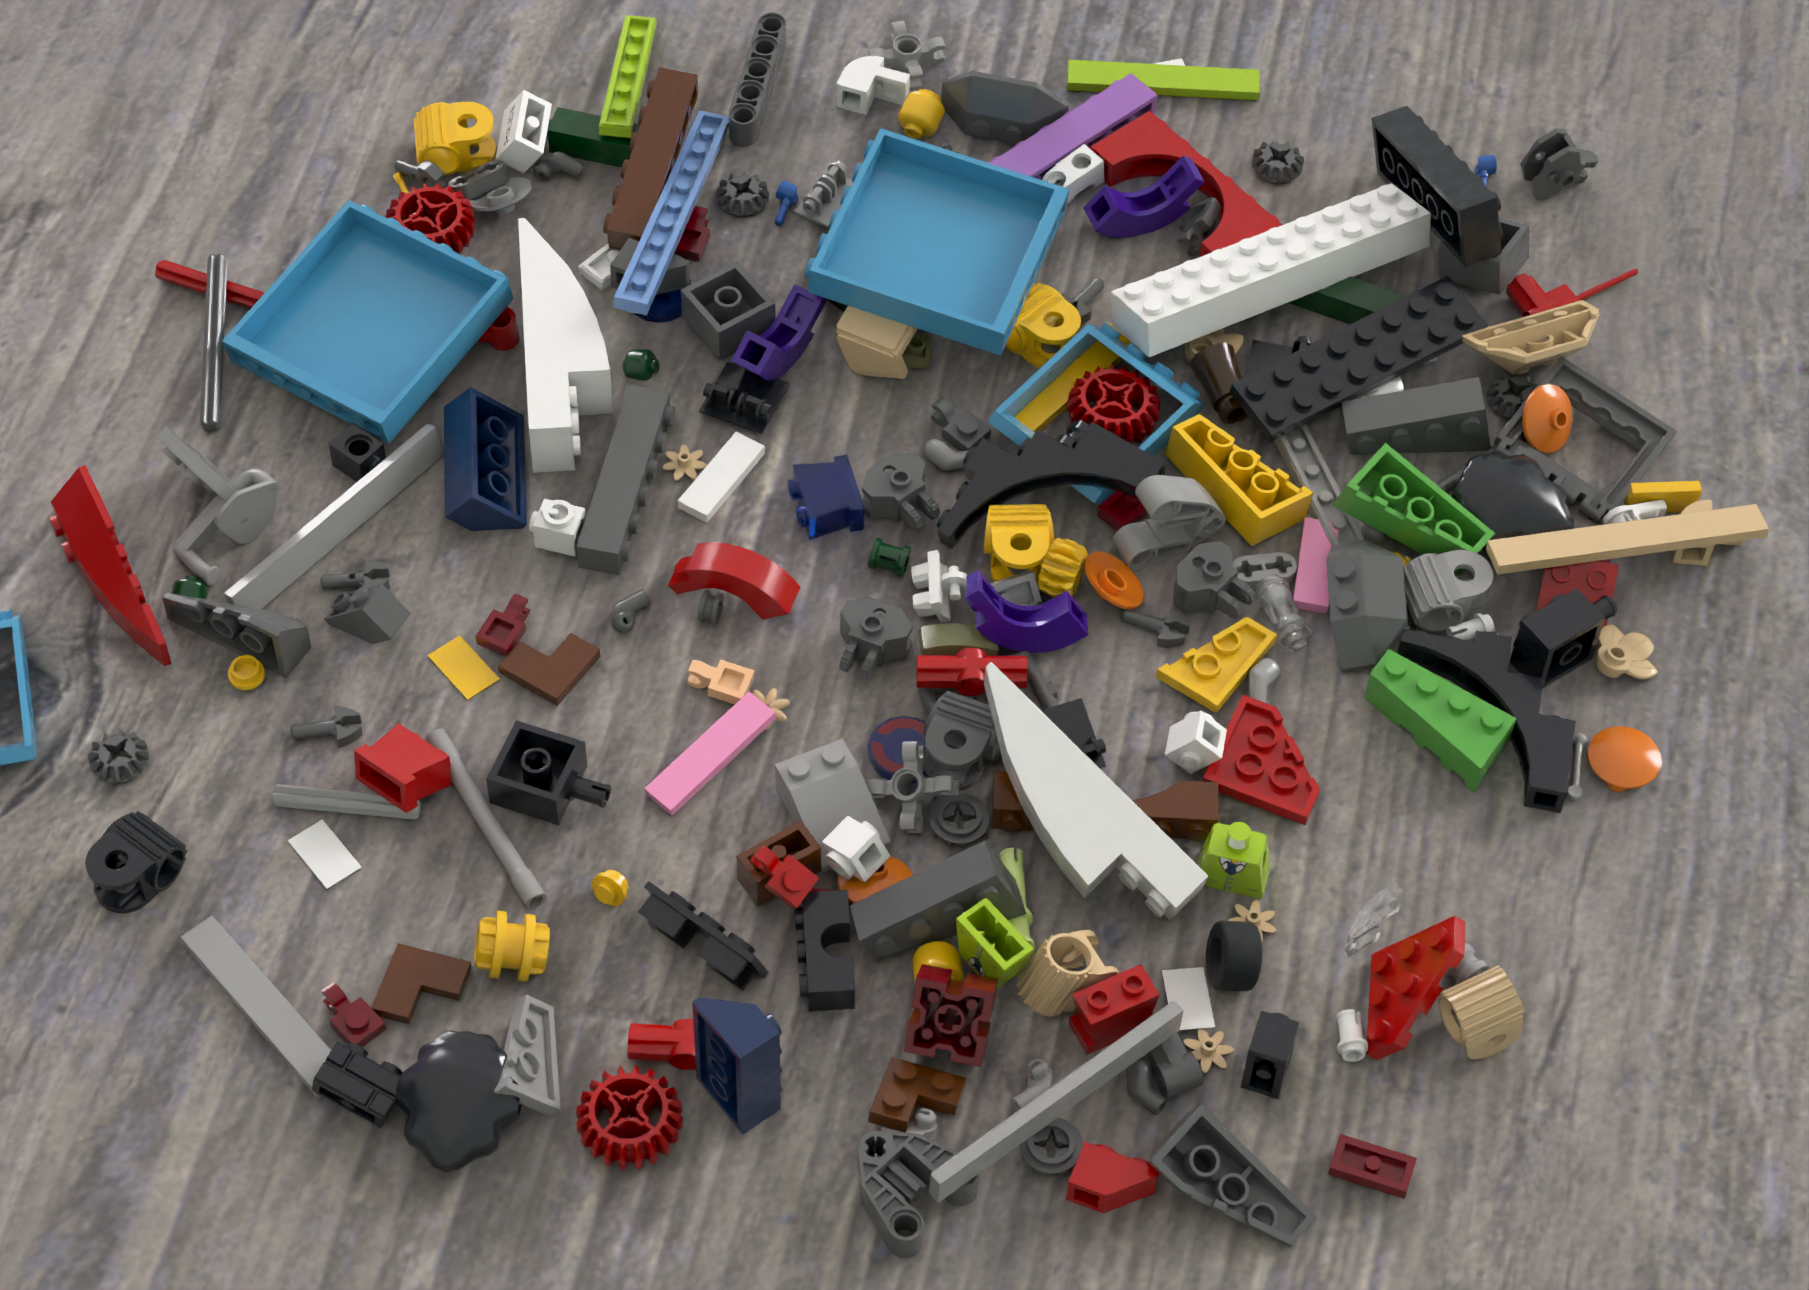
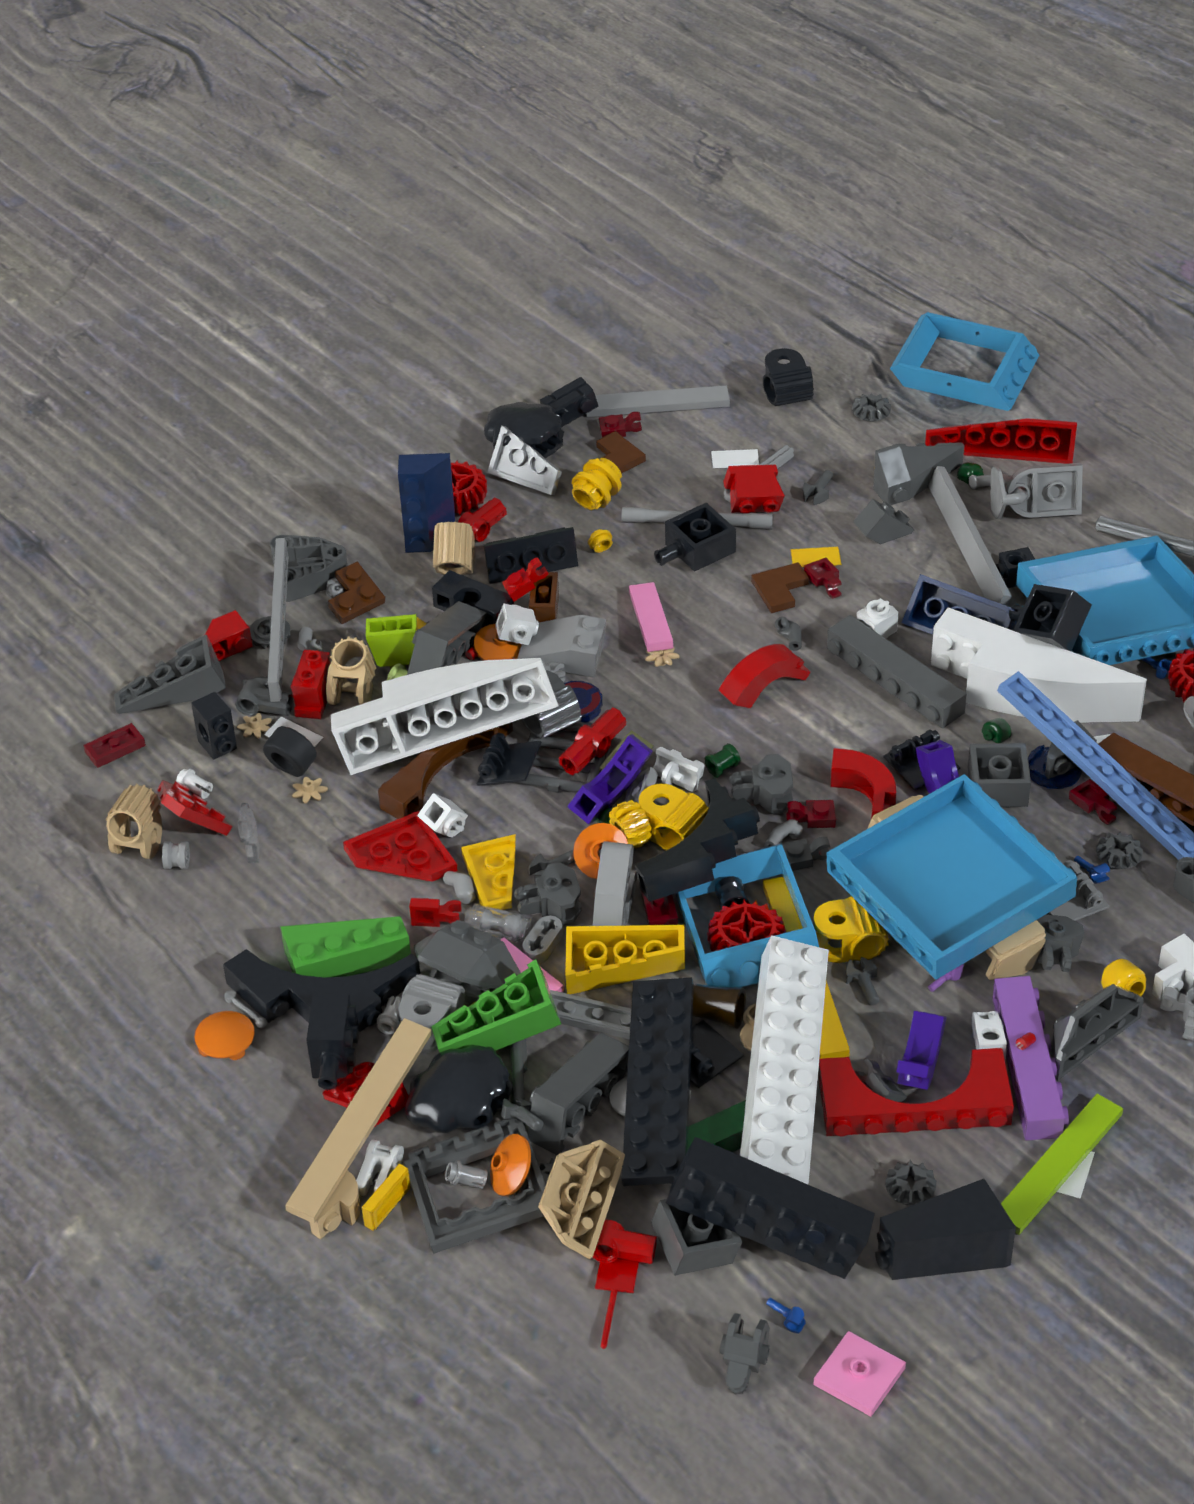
camera: 130 degrees right, 10 degrees down
(363, 578) = (919, 539): dark grey bar -> none
(488, 326) = (1051, 615): none -> black brick
(684, 463) = (891, 712): tan plant -> none
(721, 477) = (862, 721): white tile -> none
(726, 682) = (698, 646): light nougat plate -> none
(793, 991) = (455, 545): none -> tan piece
(818, 405) = (865, 774): none -> red arch
(826, 497) = (803, 750): clear blue hips -> none
(873, 637) = (664, 715): dark grey hinge -> none
(891, 440) = (815, 812): none -> dark red plate
(951, 1015) = (384, 603): dark red brick -> none
(1071, 130) = (1025, 1041): none -> red piece
(1236, 859) = (347, 787): lime torso -> none
(1323, 680) = (430, 912): none -> red plate
(1324, 92) = (947, 1235): none -> black slope
(1491, 106) = (859, 1373): none -> bright pink plate
(1492, 437) = (522, 1110): none -> dark grey bar
(1588, 455) = (465, 1175): none -> light grey pin
(1624, 654) = (294, 1092): tan plate -> none

